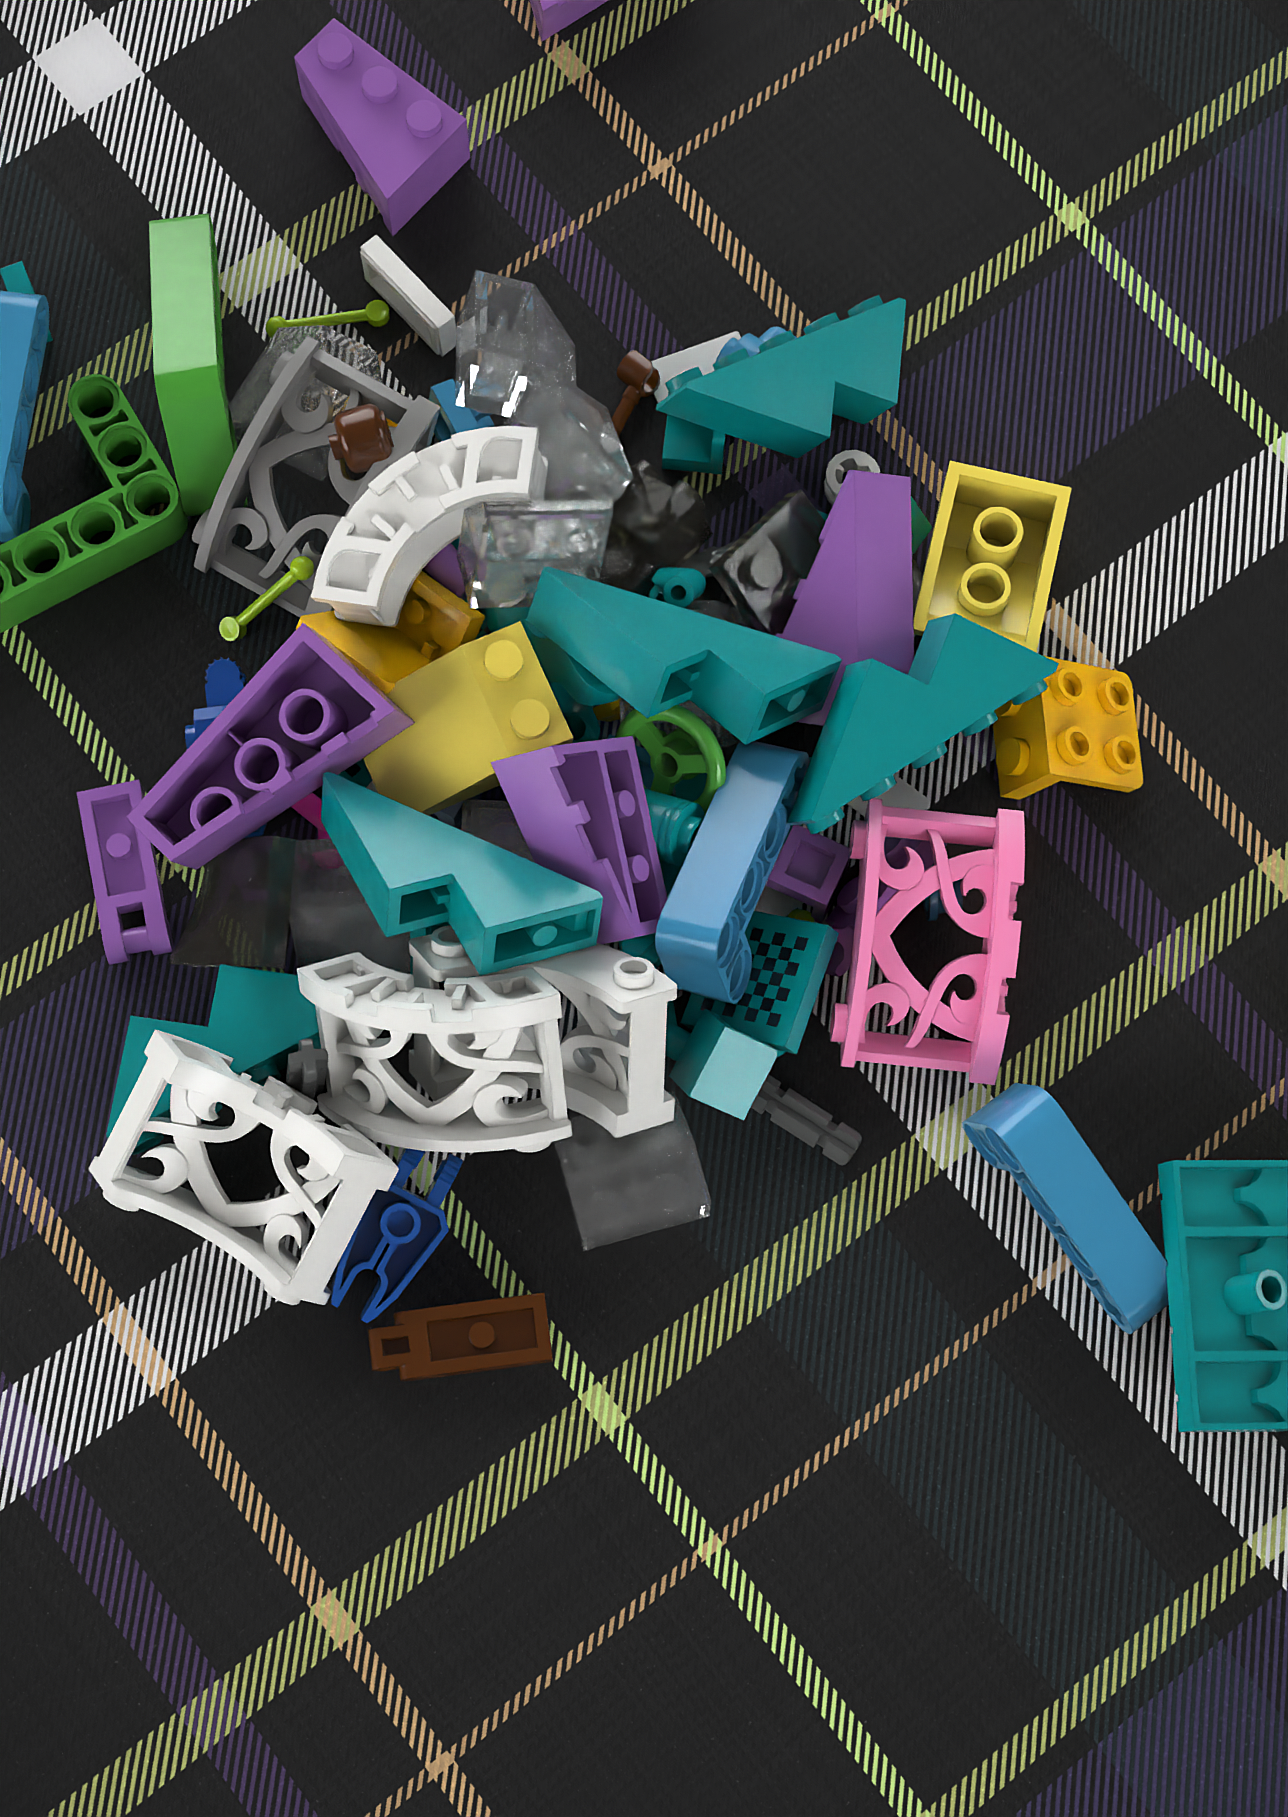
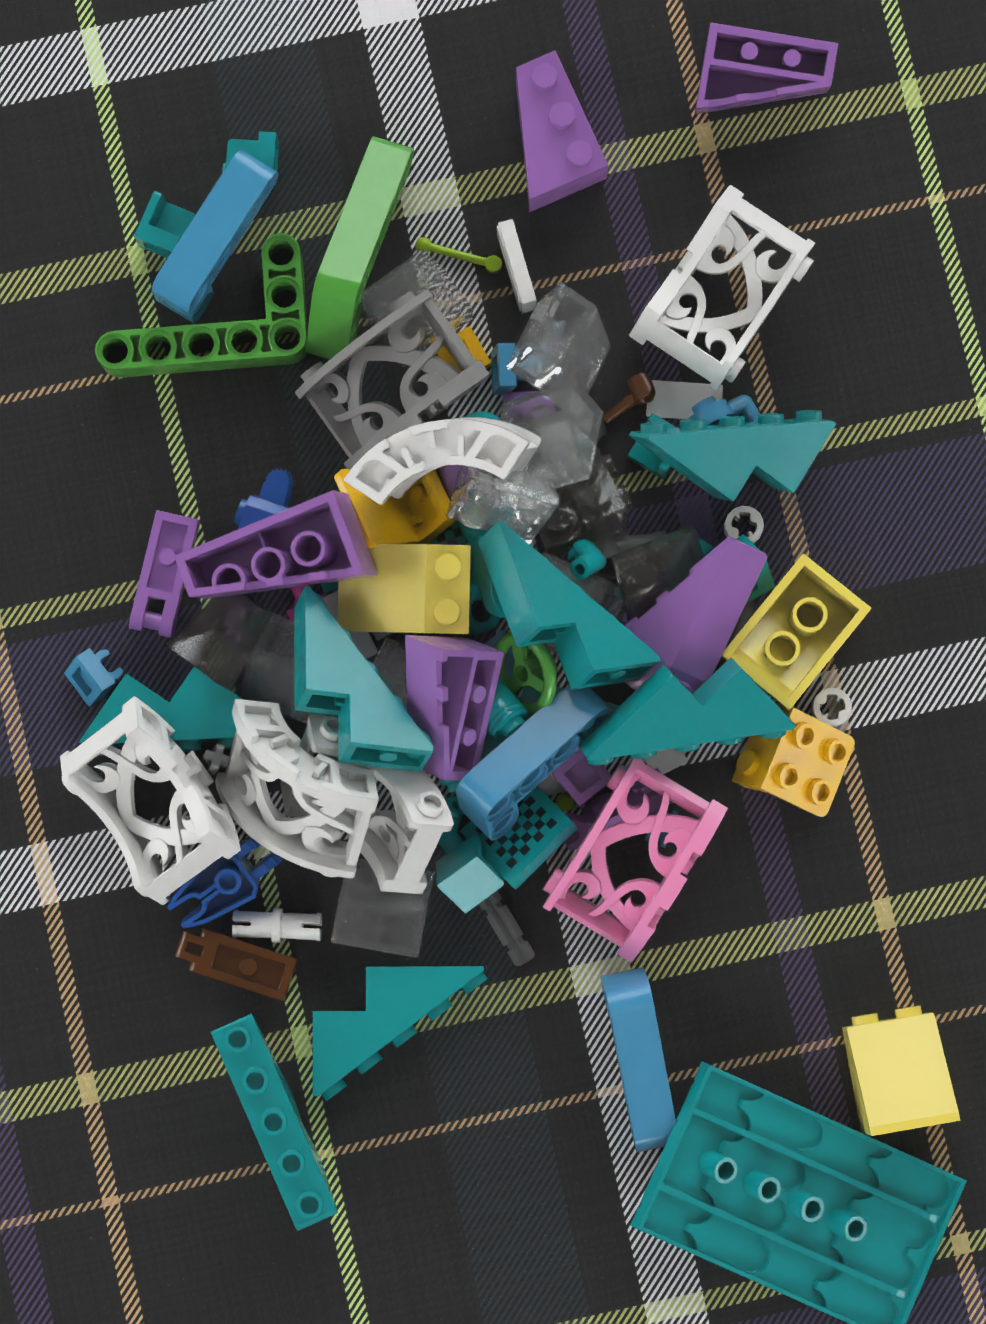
camera: 30 degrees right, 10 degrees up
(85, 1048) = (91, 677): none -> dark azure tile
(235, 628) = (303, 441): lime hinge -> none
(361, 437) = (430, 373): reddish brown piece -> none
(494, 1262) = (277, 925): none -> white pin
(624, 1525) = (276, 1122): none -> teal slope
(646, 140) = (721, 231): none -> white fence
(705, 1288) = (393, 1004): none -> teal slope
(1080, 629) = (821, 699): none -> white bush

